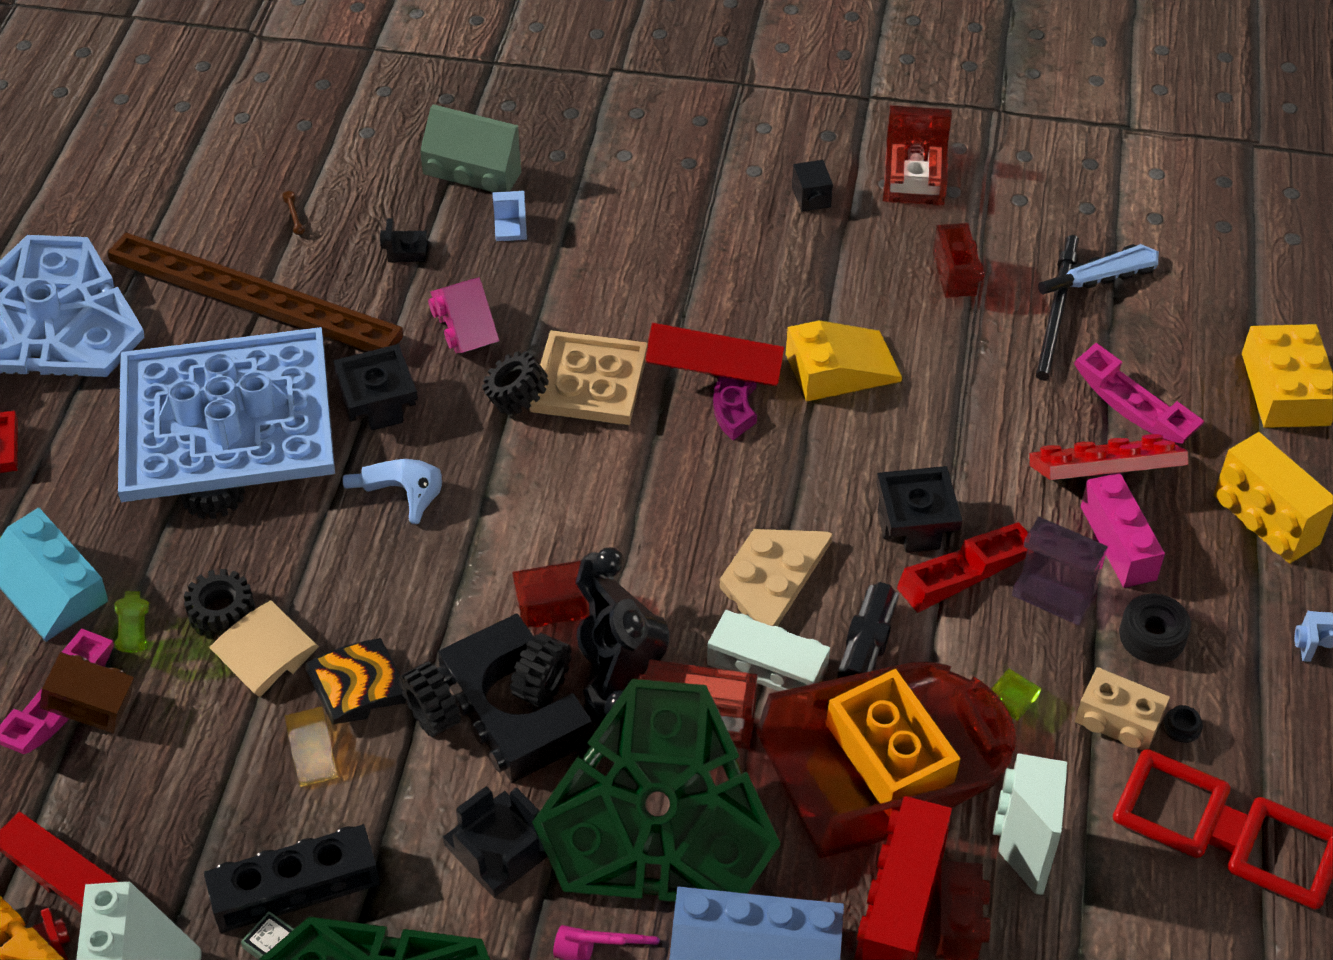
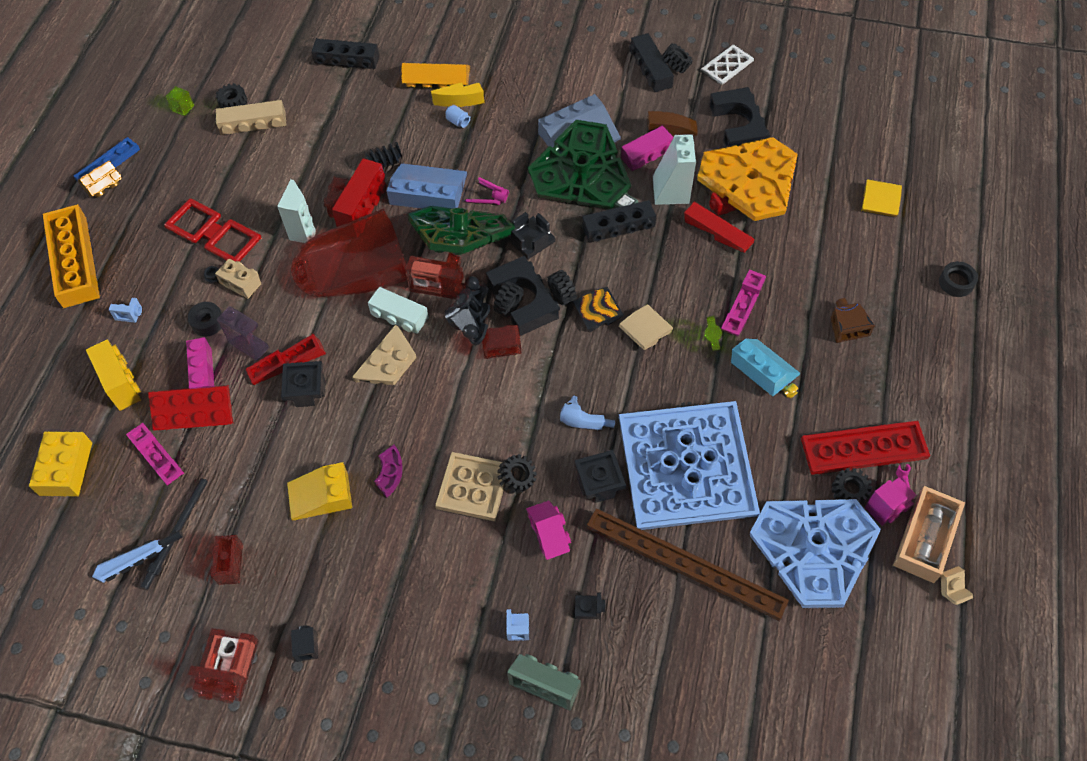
camera: 175 degrees left, 10 degrees up
(86, 692) = (726, 299): reddish brown brick -> none
(215, 588) = (671, 340): black tyre -> none
(289, 197) = (674, 662): reddish brown hinge -> none
(311, 746) = (618, 282): clear yellow slope -> none
(714, 354) = (396, 491): red panel -> none
(869, 630) = (346, 320): black piece -> none
(892, 739) = (348, 254): light orange brick -> none
(1016, 693) = (286, 289): clear neon green plate -> none

